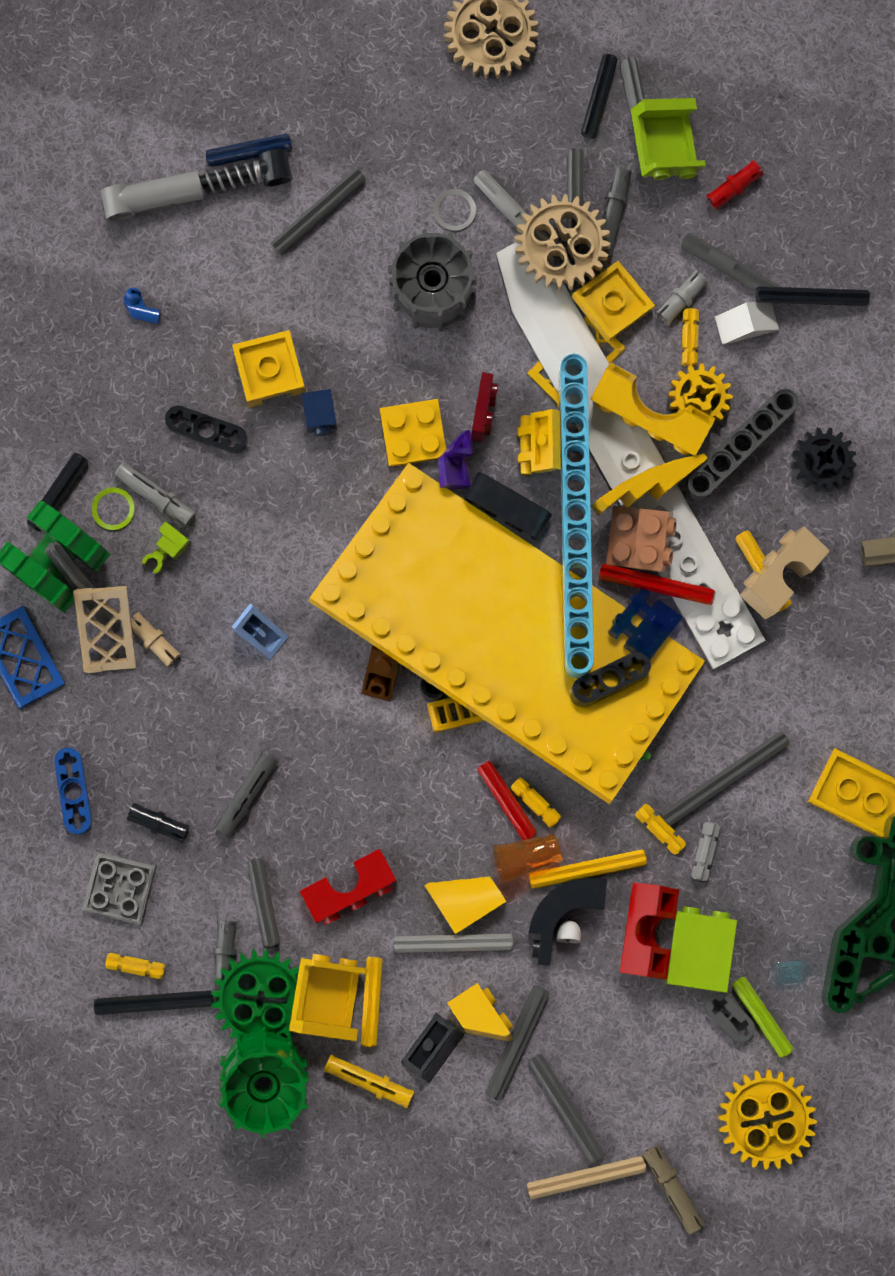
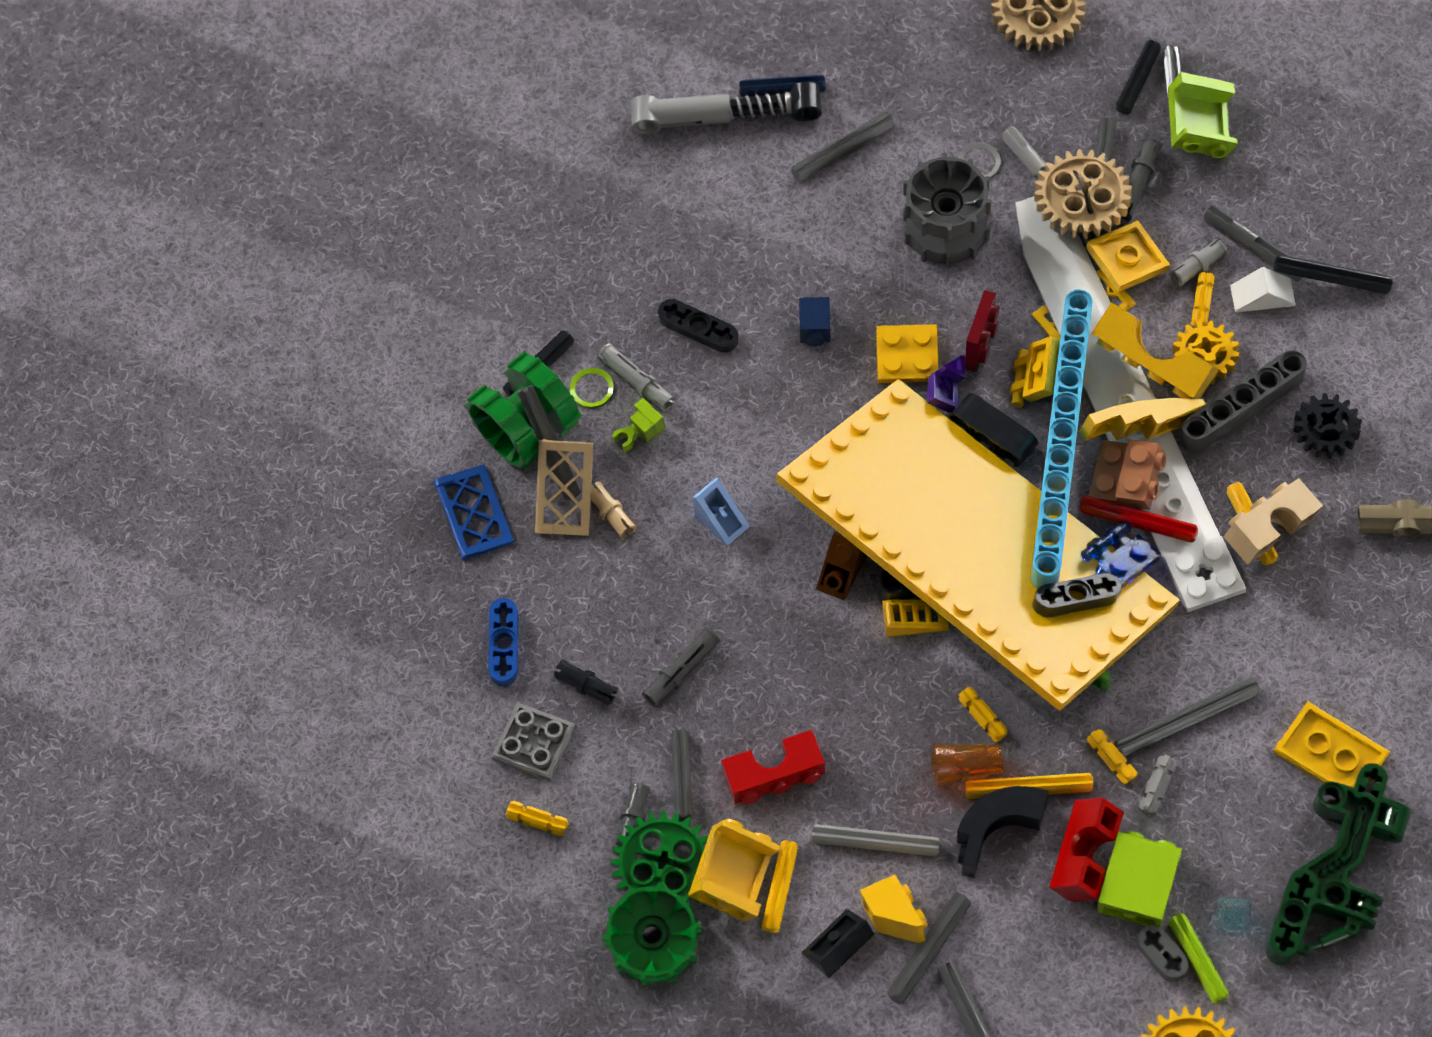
camera: 15 degrees right, 20 degrees down
(138, 309) = (648, 210): blue arm -> none
(153, 1002) = (549, 856): black axle -> none
(268, 367) = (770, 272): yellow panel -> none
(402, 1097) = (776, 971): yellow pin -> none
(465, 900) = (896, 799): yellow slope -> none
(507, 800) = (951, 706): red axle -> none
(569, 930) = (1001, 841): white hinge -> none
(735, 185) = (1265, 168): red pin -> none

